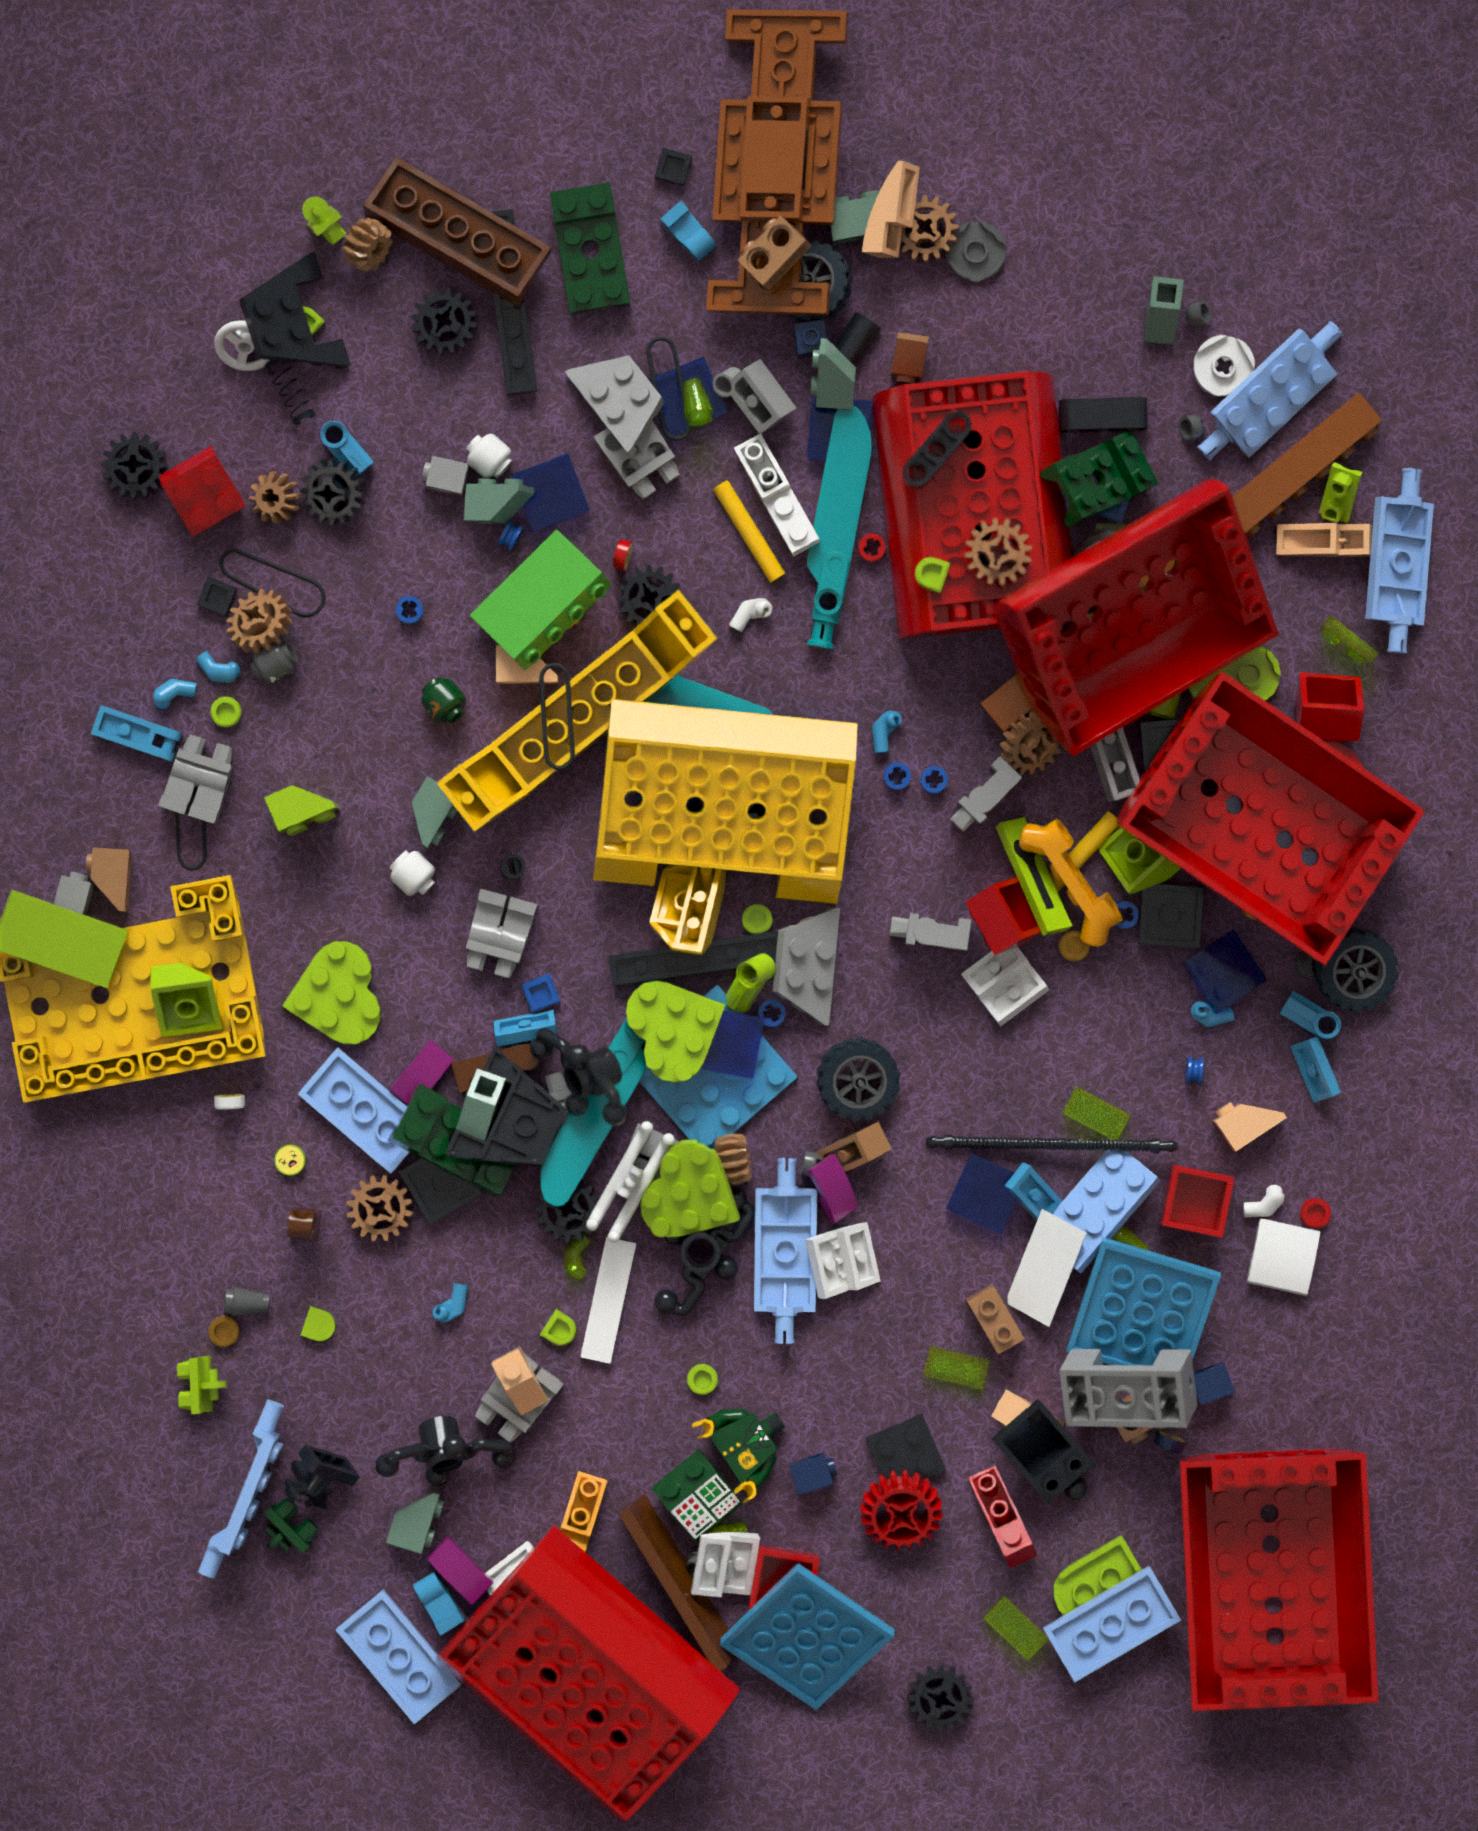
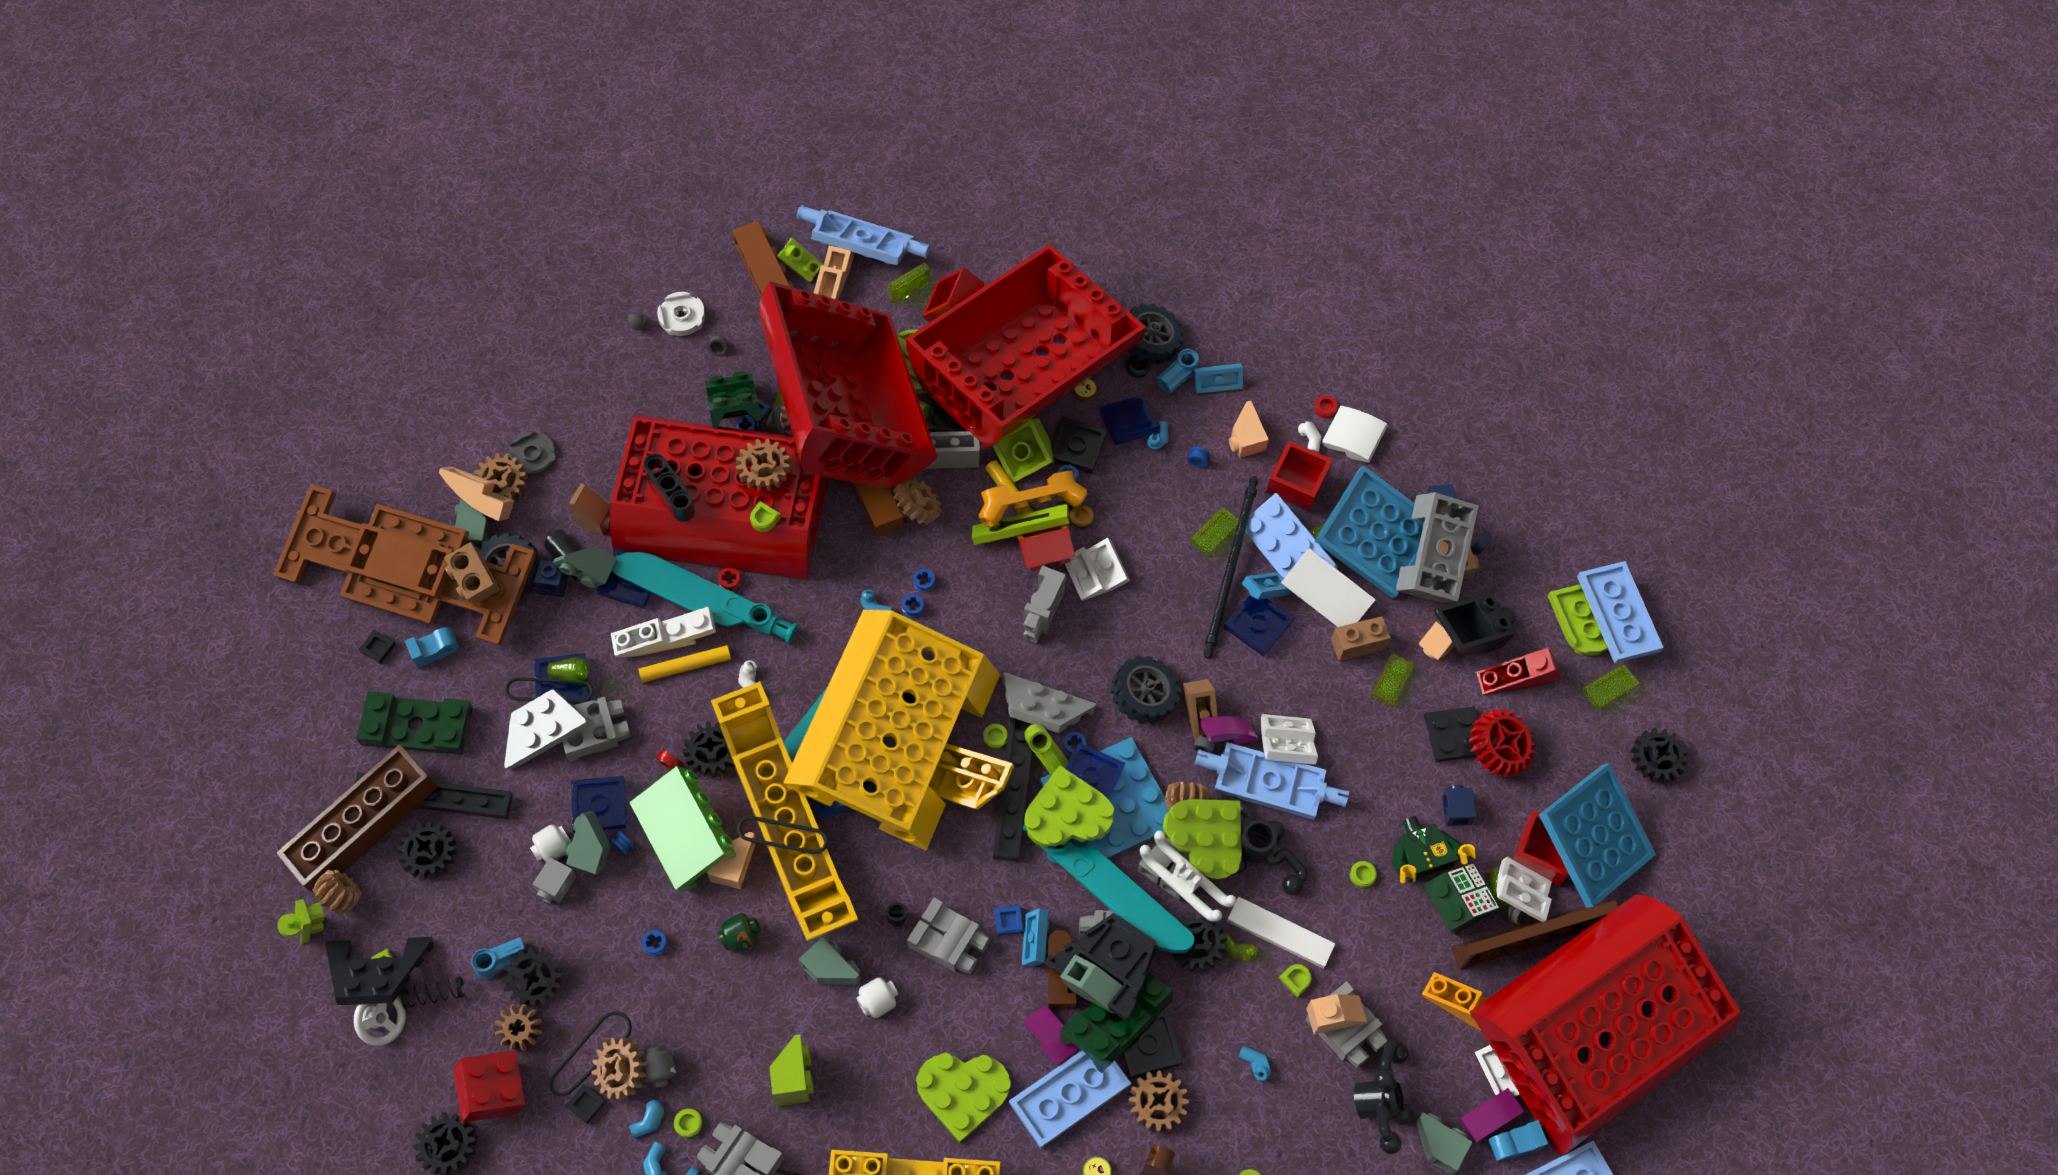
camera: 75 degrees left, 25 degrees down
(584, 1074) = (1088, 884): black wheel -> none
(756, 394) = (579, 626): light grey hinge -> none
(986, 796) = (944, 532): light grey hips -> none
(1103, 413) = (687, 394): black beam -> none
(1163, 310) = (623, 338): sand green slope -> none
(1272, 393) = (713, 287): light blue plate -> none
(1316, 1572) = (1605, 461): red slope -> none

